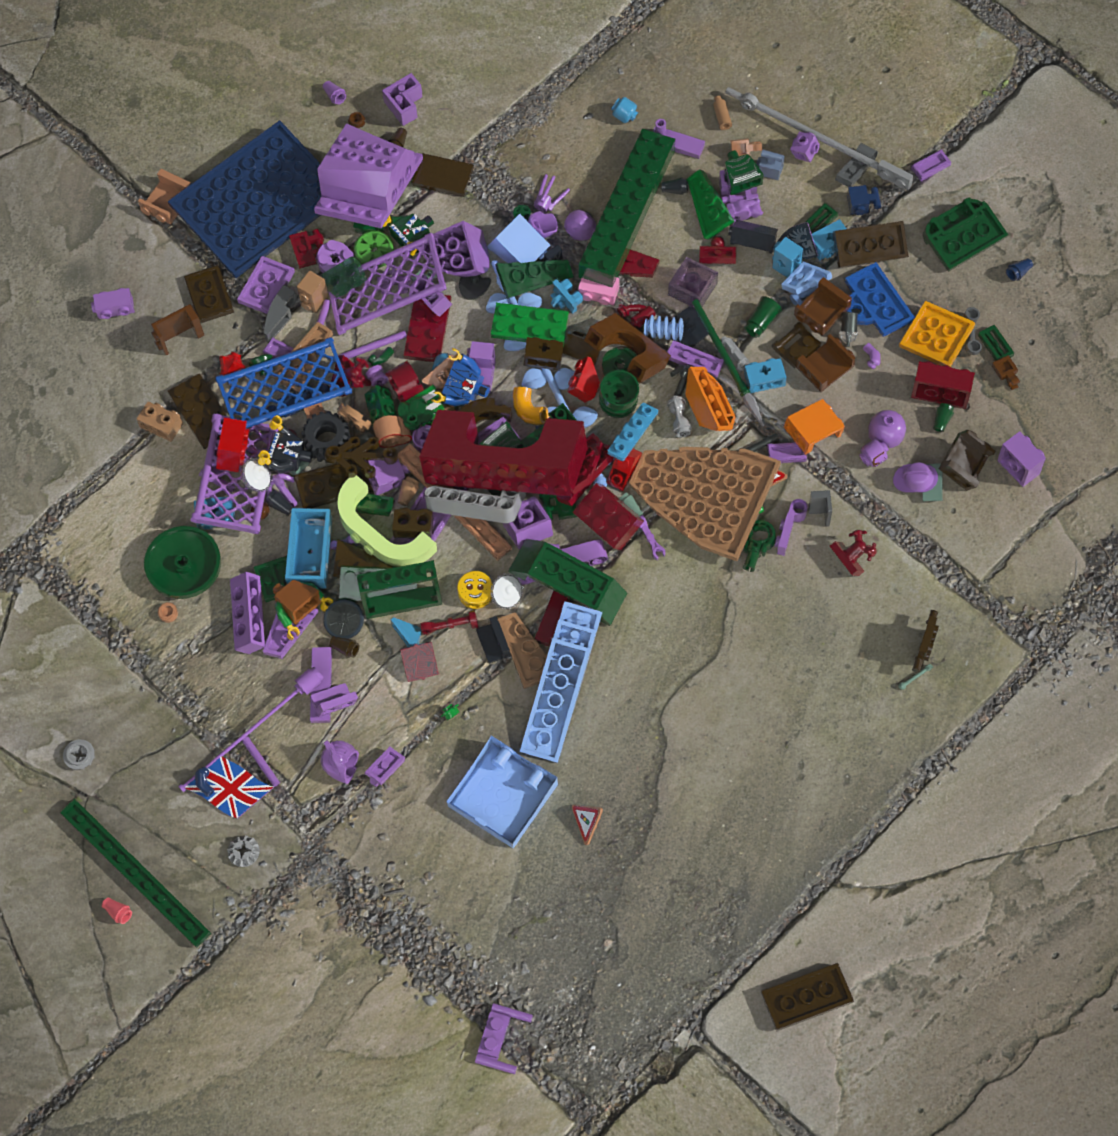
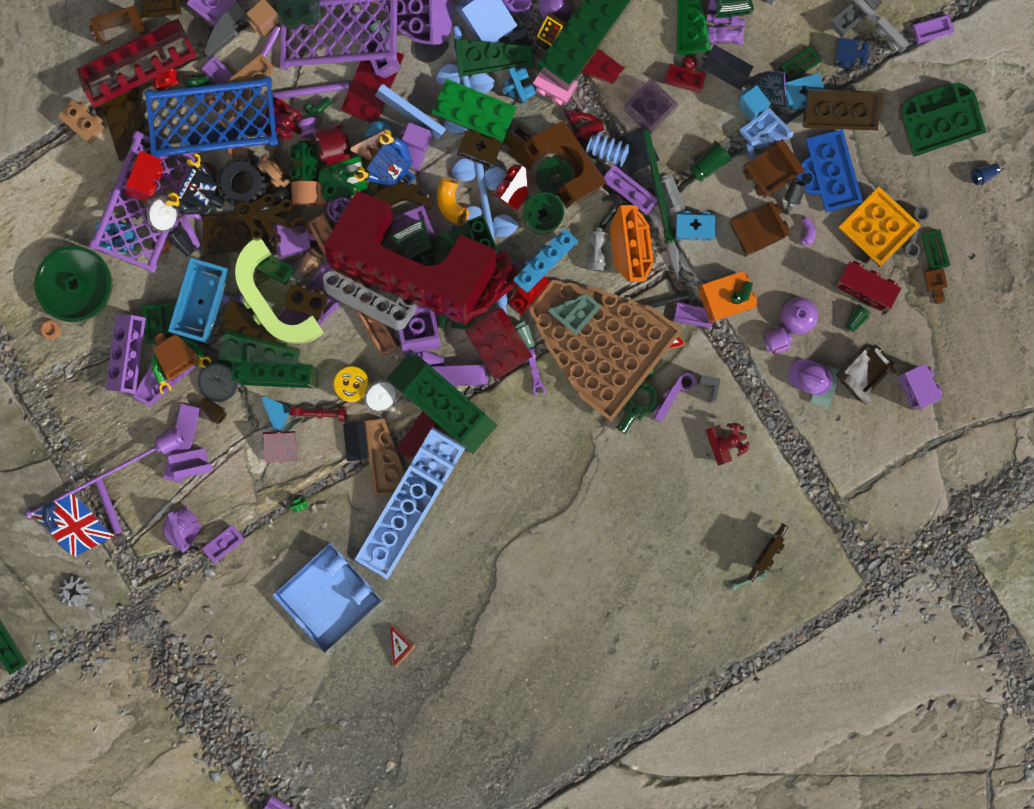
camera: 10 degrees right, 20 degrees up
(202, 355) = (135, 63): none -> dark red window
(464, 333) = (409, 111): none -> light blue tile
(581, 240) = (549, 31): none -> dark brown slope
(675, 471) = (576, 312): none -> sand green wing
(803, 346) = (739, 205): dark brown plate -> none
(827, 418) = (743, 295): none -> dark green arm

